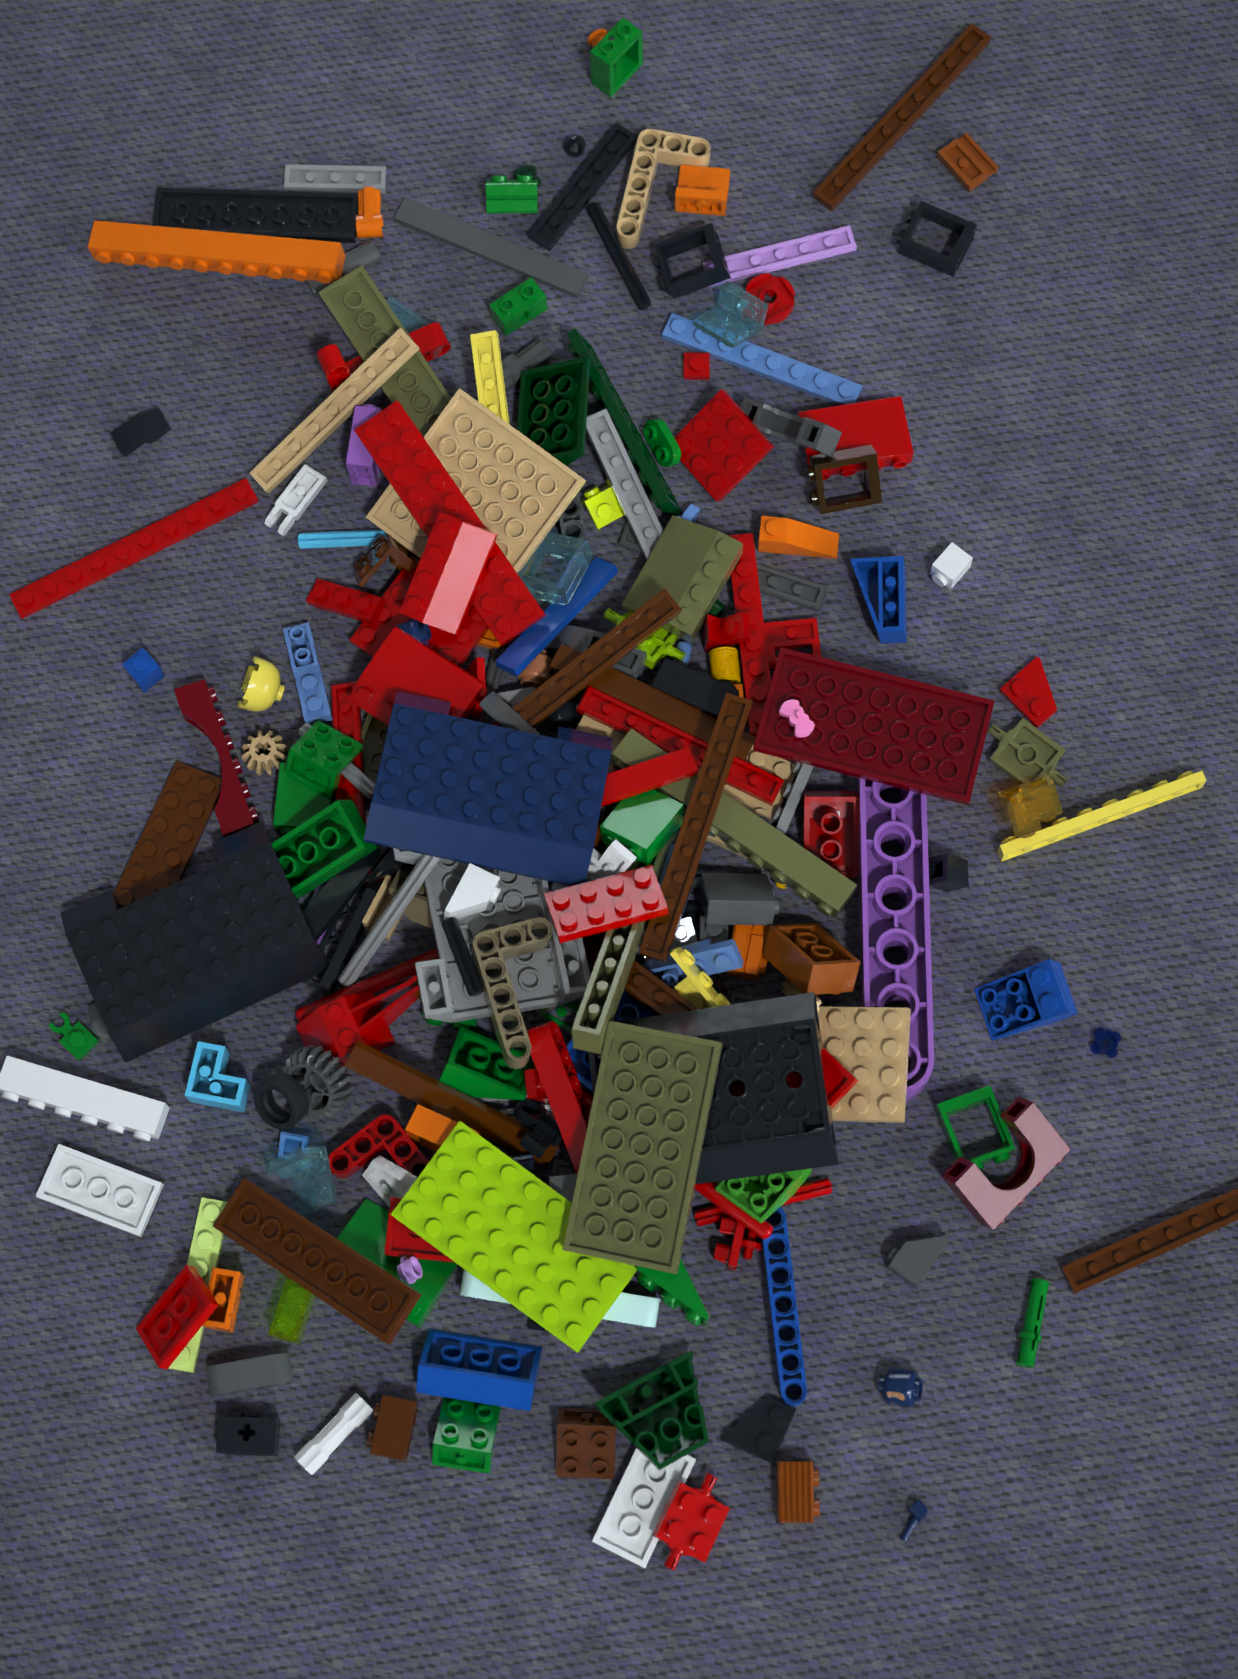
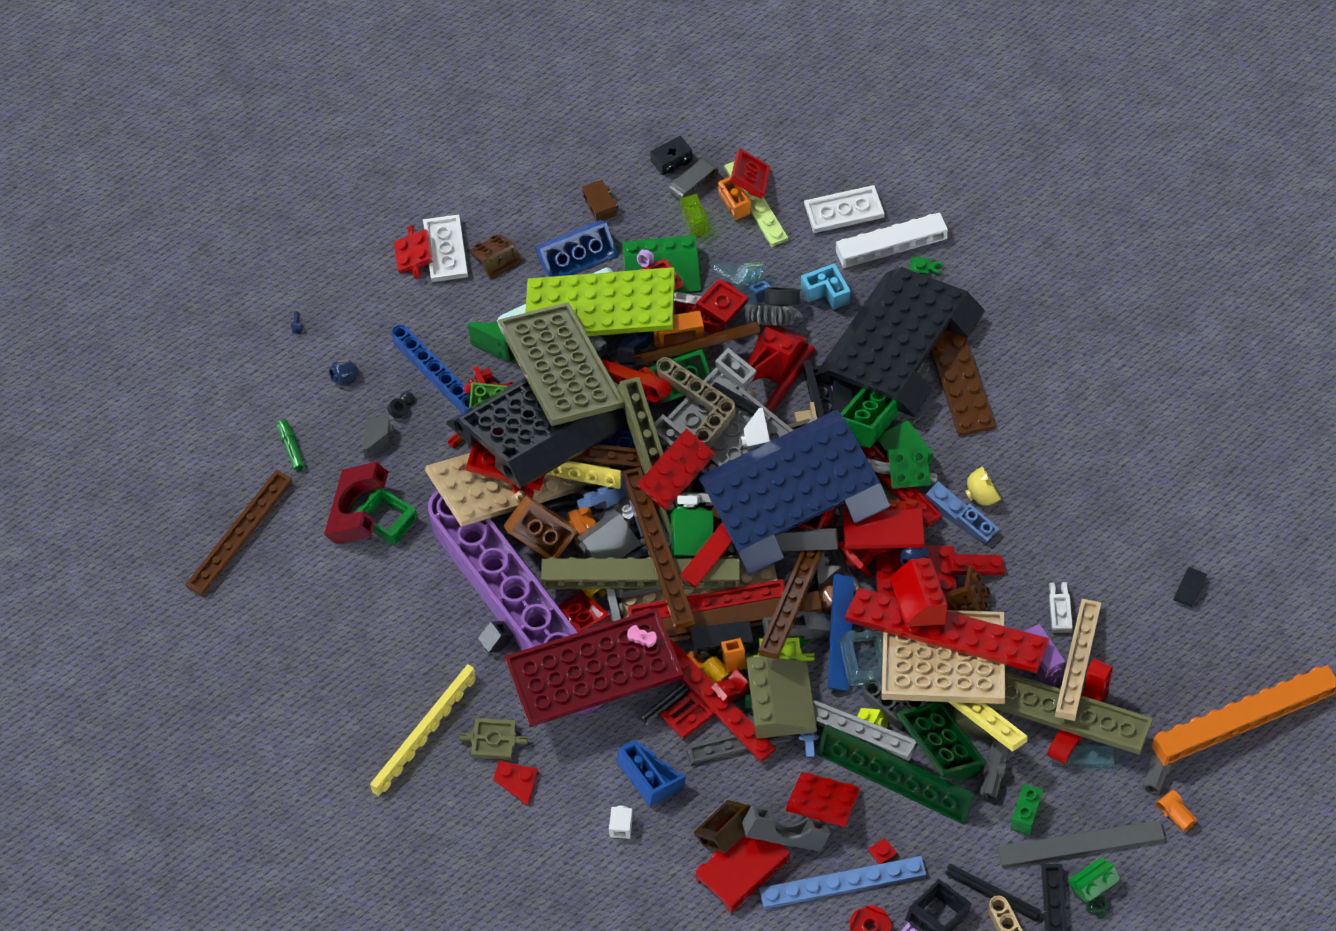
camera: 145 degrees right, 15 degrees down
(133, 548) = (1129, 523): red plate -> none
(143, 670) = (1057, 455): blue brick -> none
(198, 709) = (1006, 457): dark red arch -> none
(260, 212) = (1249, 763): black plate -> none
(261, 761) = (955, 461): tan gear -> none
(317, 1261) = (698, 231): reddish brown plate -> none
(334, 178) = (1220, 821): light grey plate -> none
(338, 538) = (1019, 599): medium azure axle -> none
(349, 1417) = (629, 180): white axle -> none
(363, 1136) = (722, 302): none -> red plate
(387, 920) = (798, 401): light grey axle -> none
(465, 1435) = (560, 219): green bracket -> none
(660, 1412) = (467, 281): dark green wedge -> none
(662, 442) = (872, 786): green plate -> none
(699, 655) = (734, 655): none -> orange brick
(734, 317) = (881, 885): clear light blue bracket -> none
(762, 1430) = (406, 311): black wing -> none
(796, 538) = (732, 777): orange slope -> none
(796, 1492) = (367, 295): dark orange brick -> none
(842, 1294) = (398, 407): none -> black plate
(1026, 1000) = (400, 602): blue slope -> none
(1028, 805) = (474, 698): clear yellow brick -> none
(1113, 1039) = (339, 604): clear blue plate -> none

